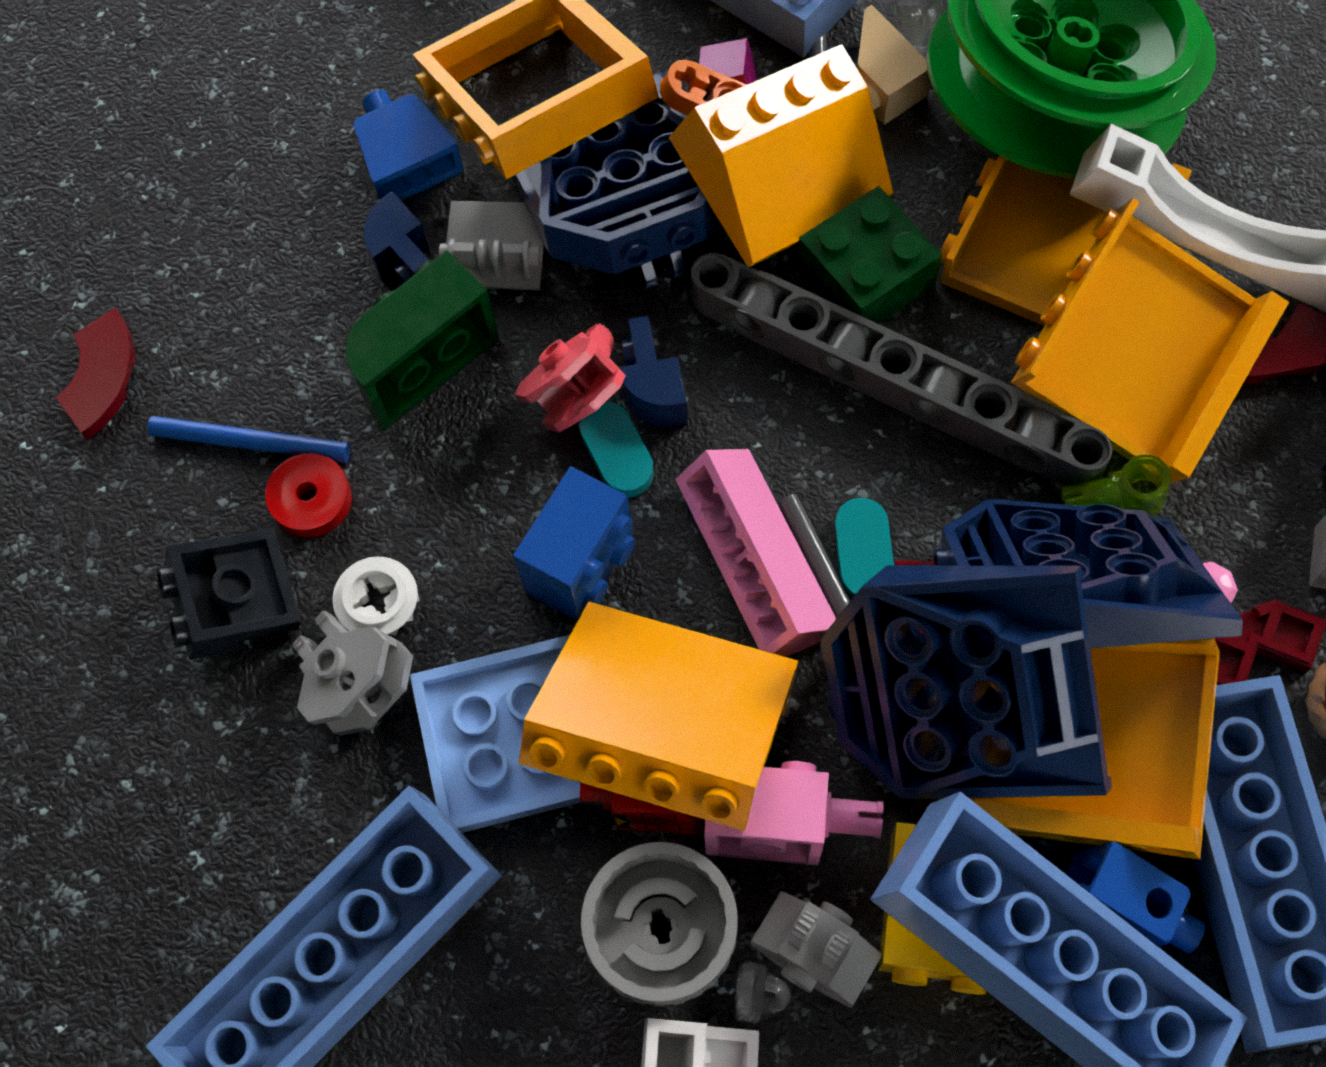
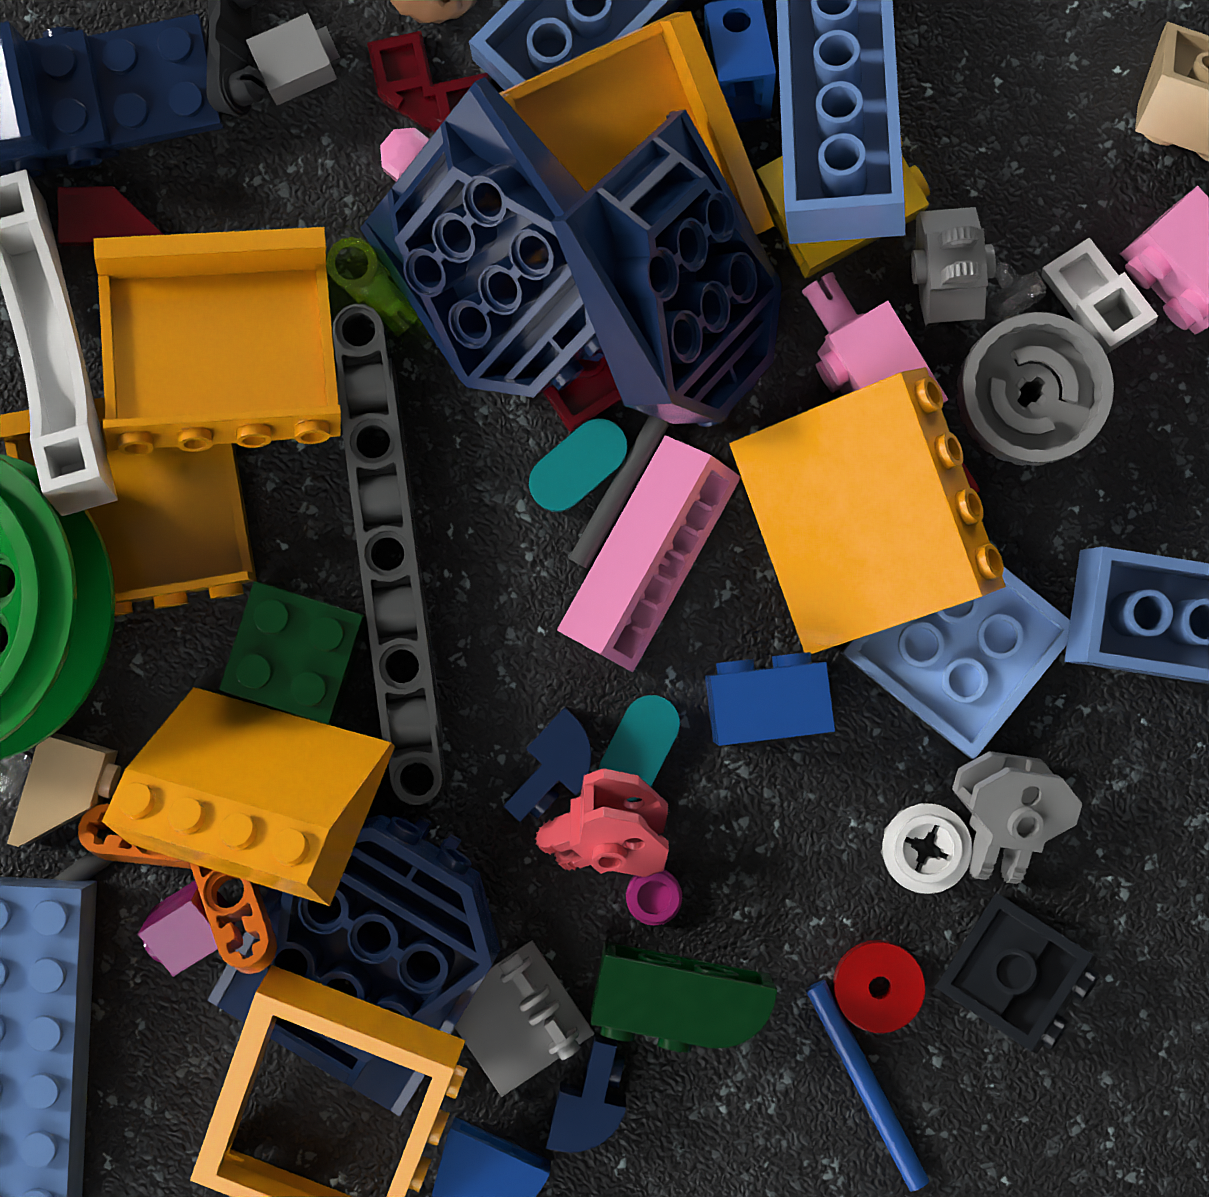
camera: 135 degrees left, 20 degrees up
(497, 388) = (654, 898): none -> dark pink tile

